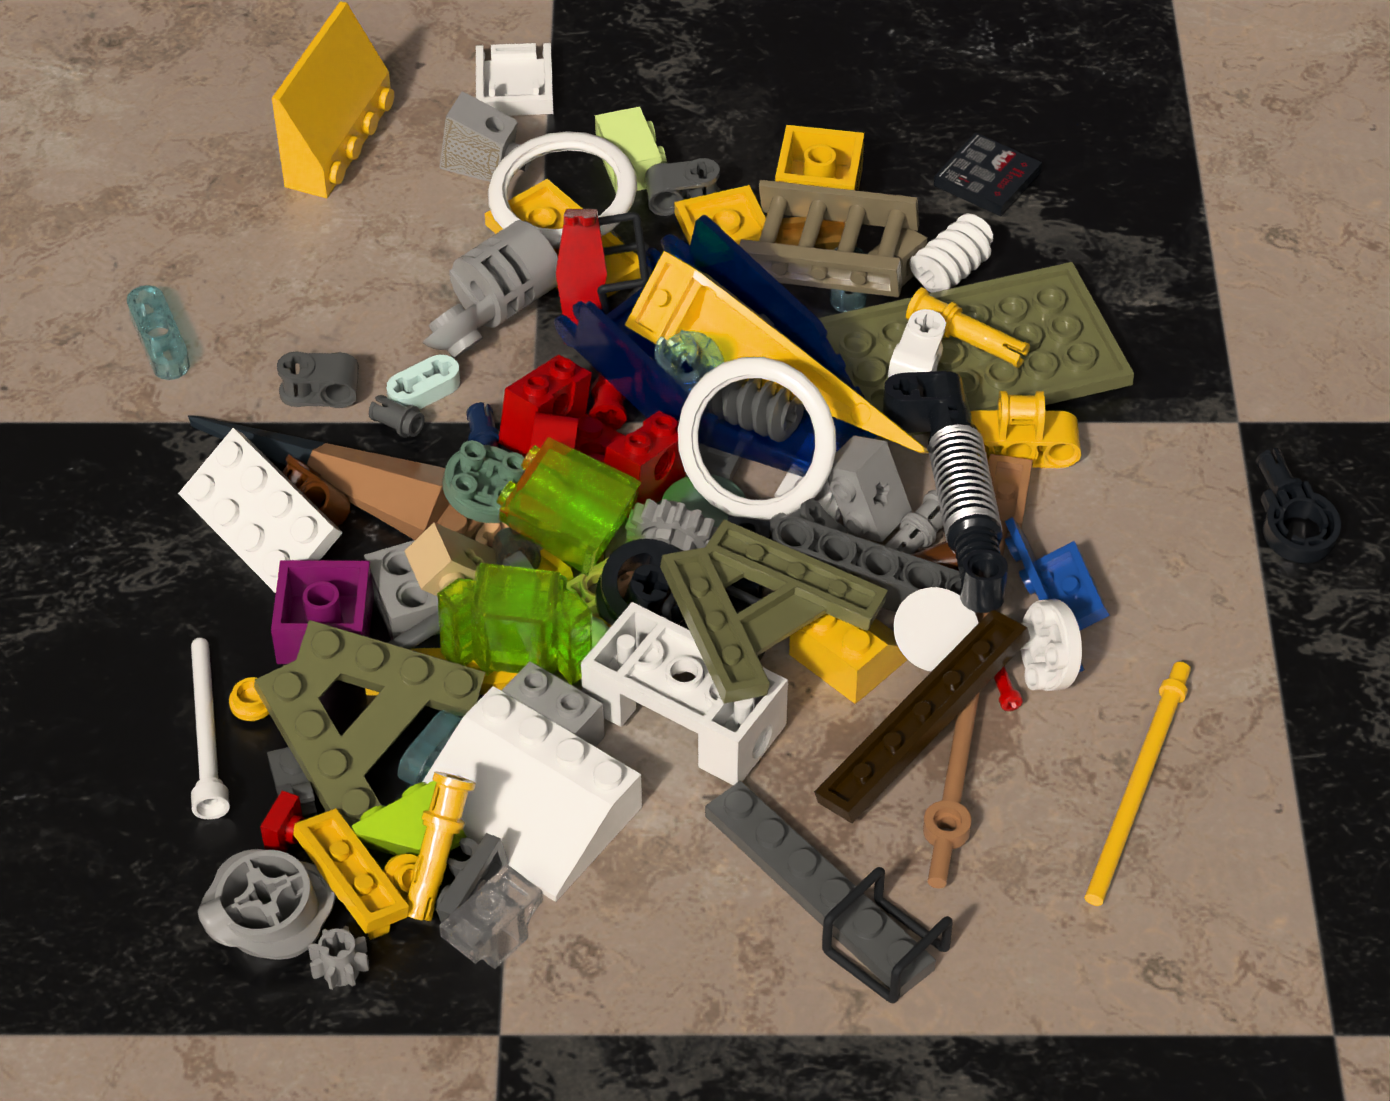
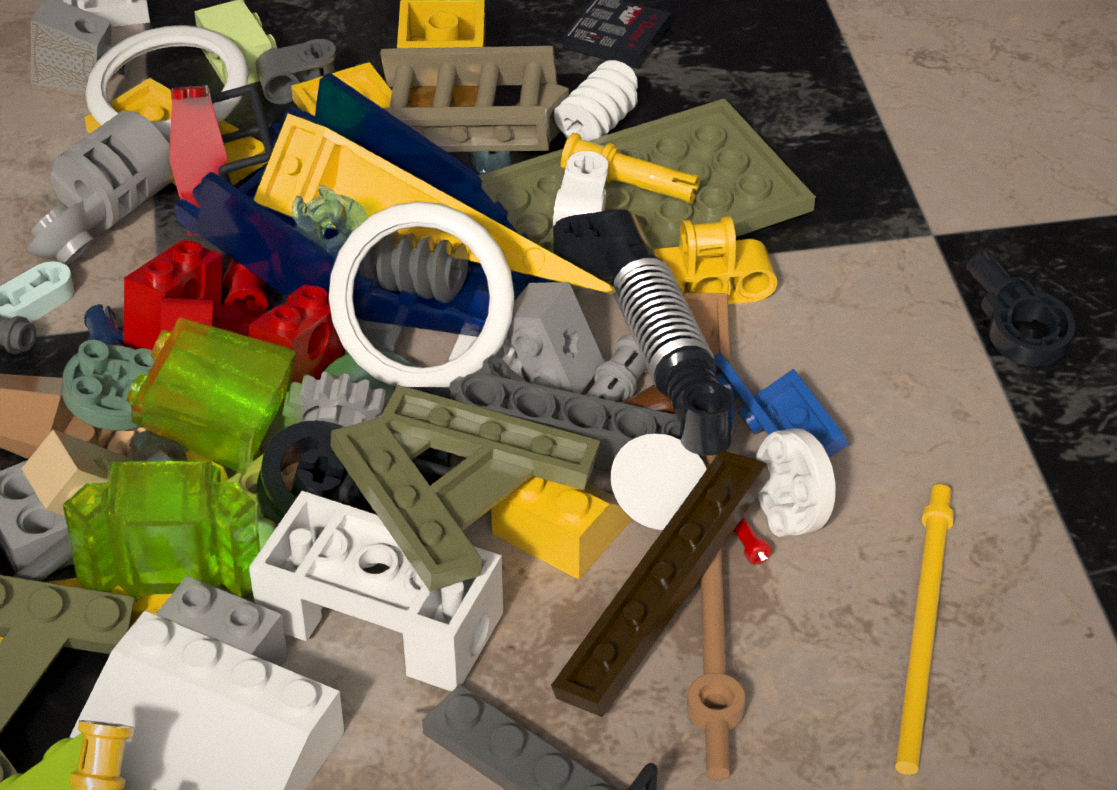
camera: 10 degrees left, 5 degrees down
(427, 747) = (69, 696): clear light blue beam -> none

